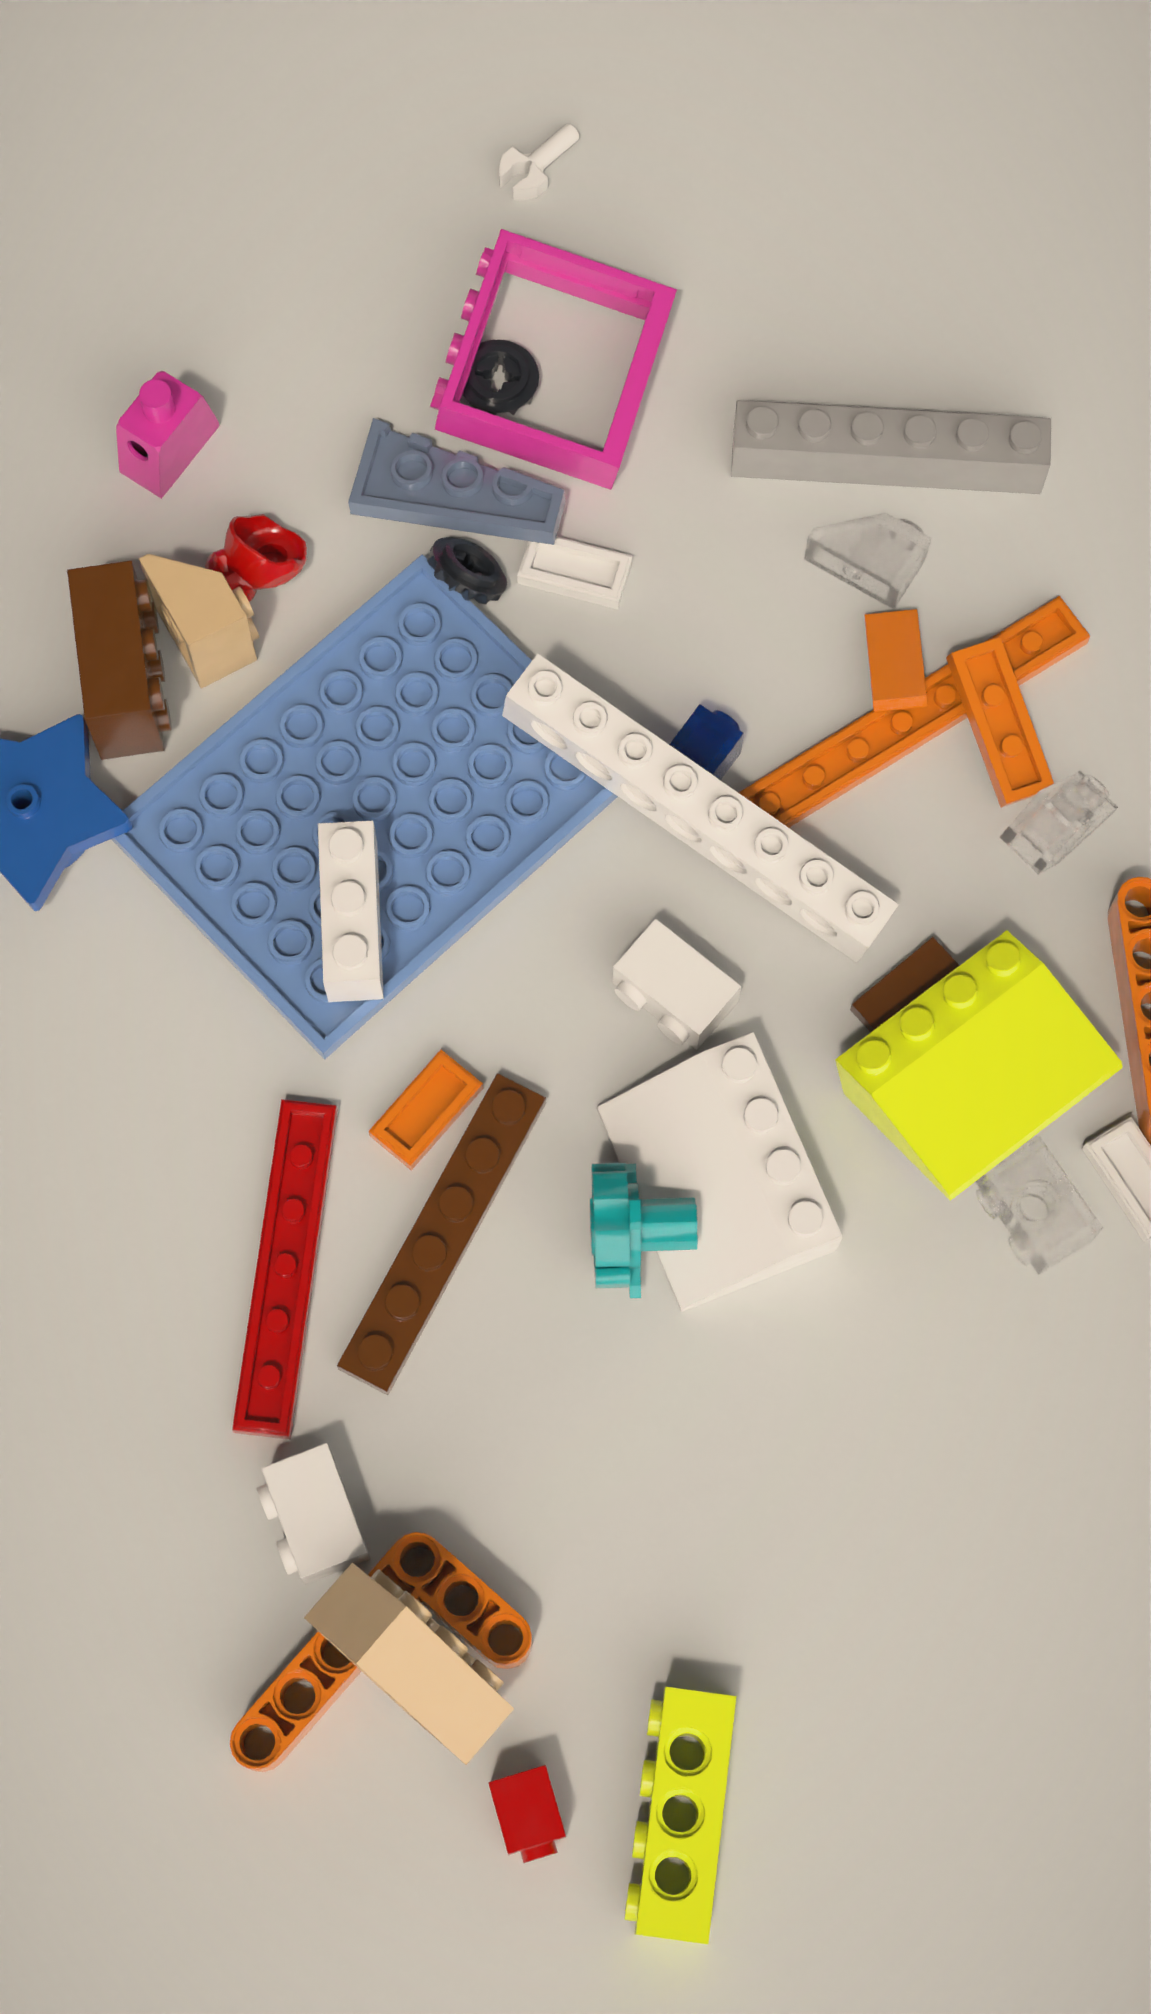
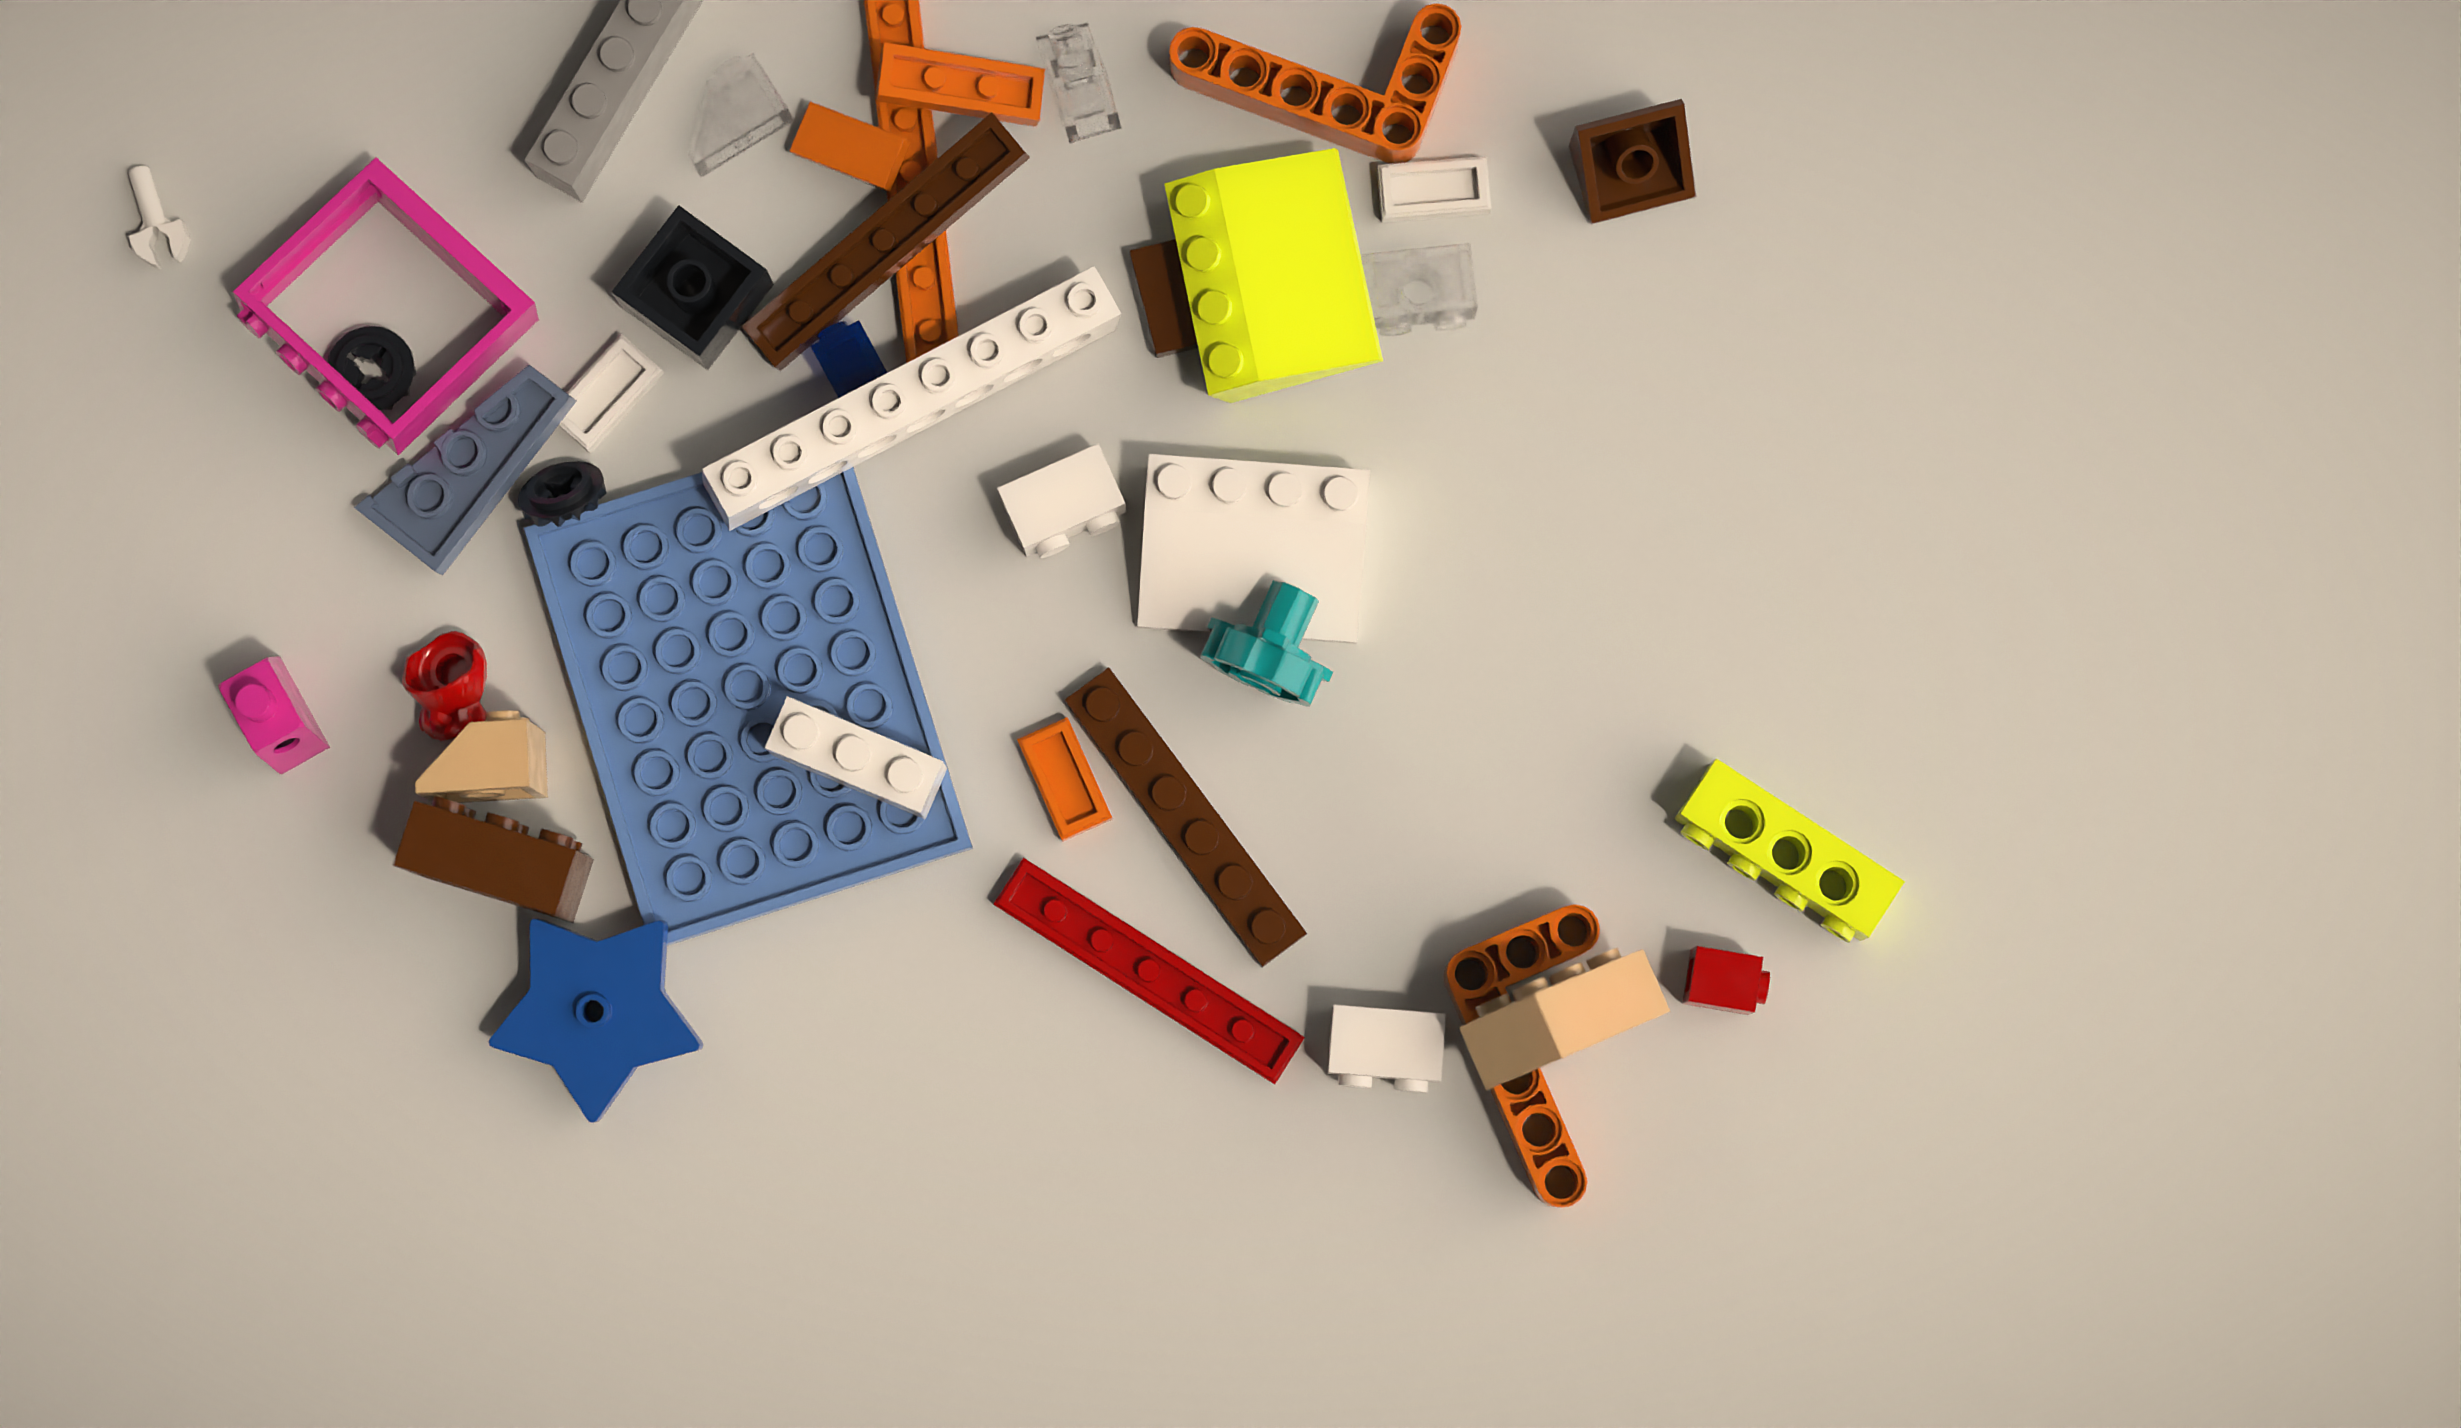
camera: 65 degrees left, 10 degrees up
(700, 588) = (693, 287): none -> black brick
(829, 726) = (886, 241): none -> reddish brown plate

